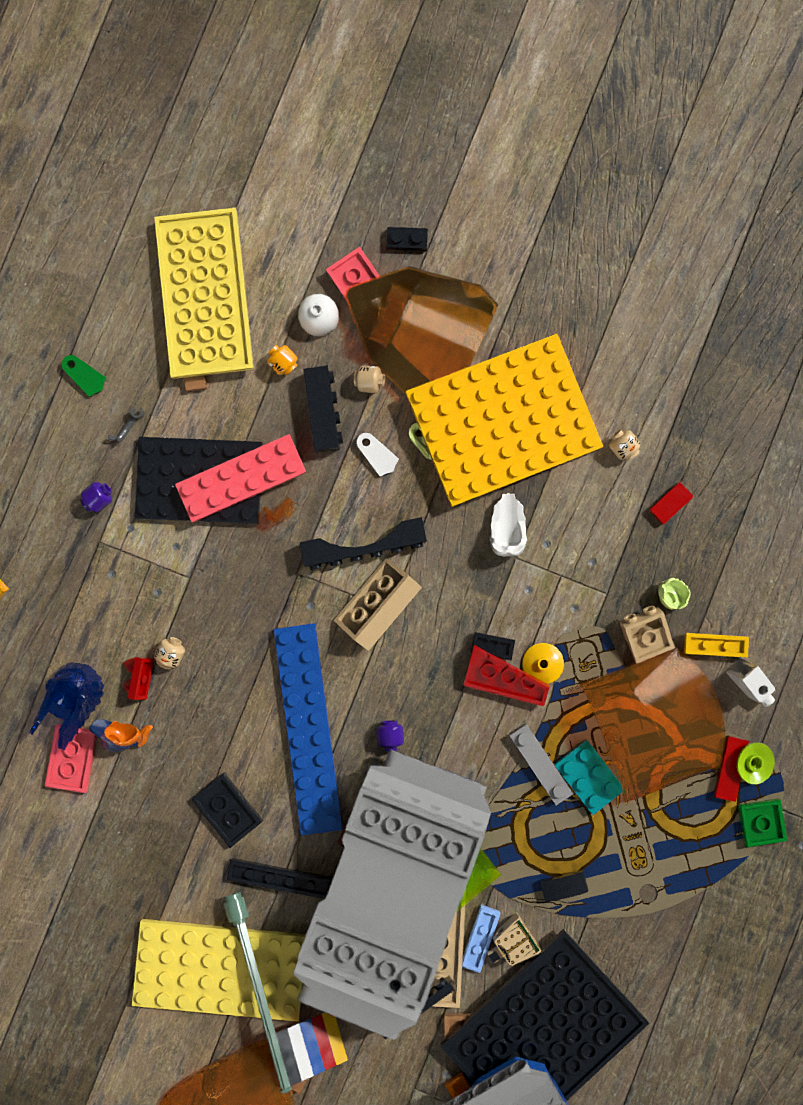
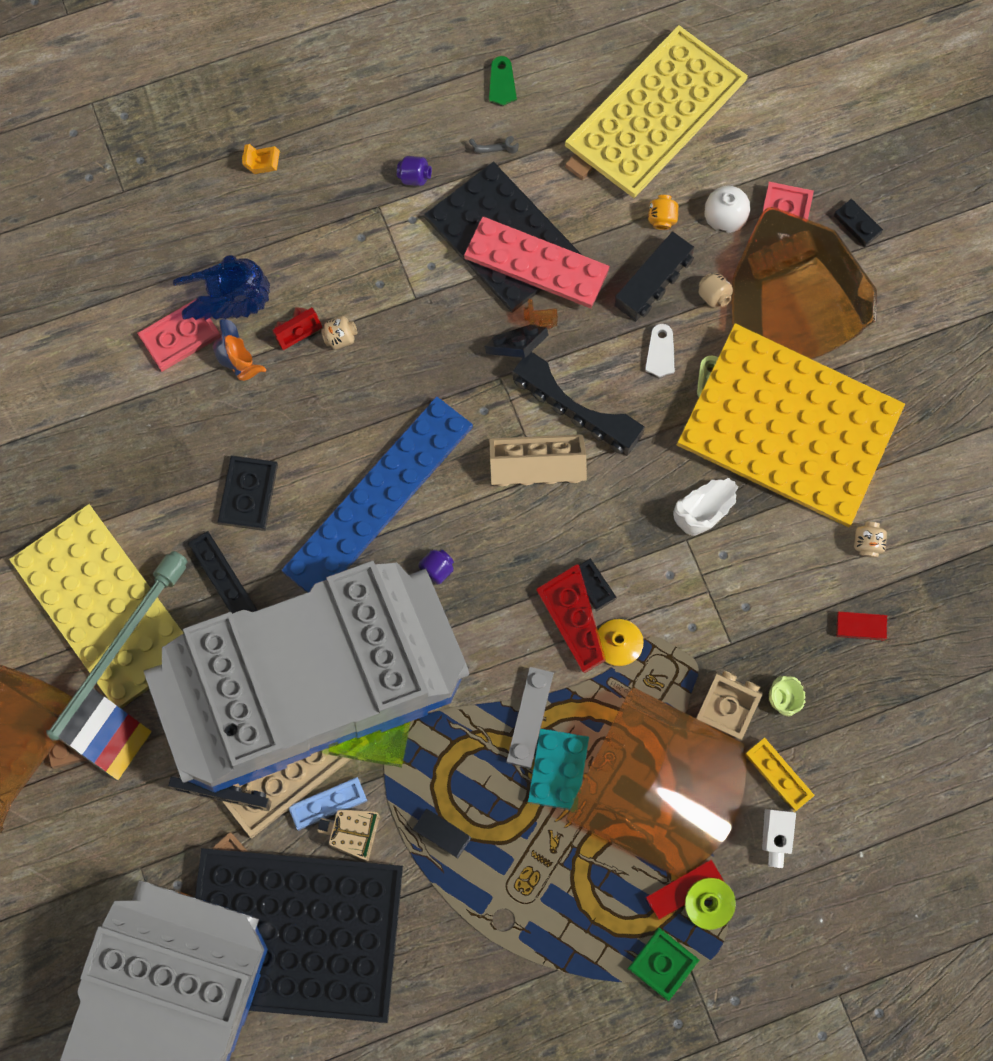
camera: 50 degrees right, 15 degrees down
(285, 543) = (517, 342): none -> black plate

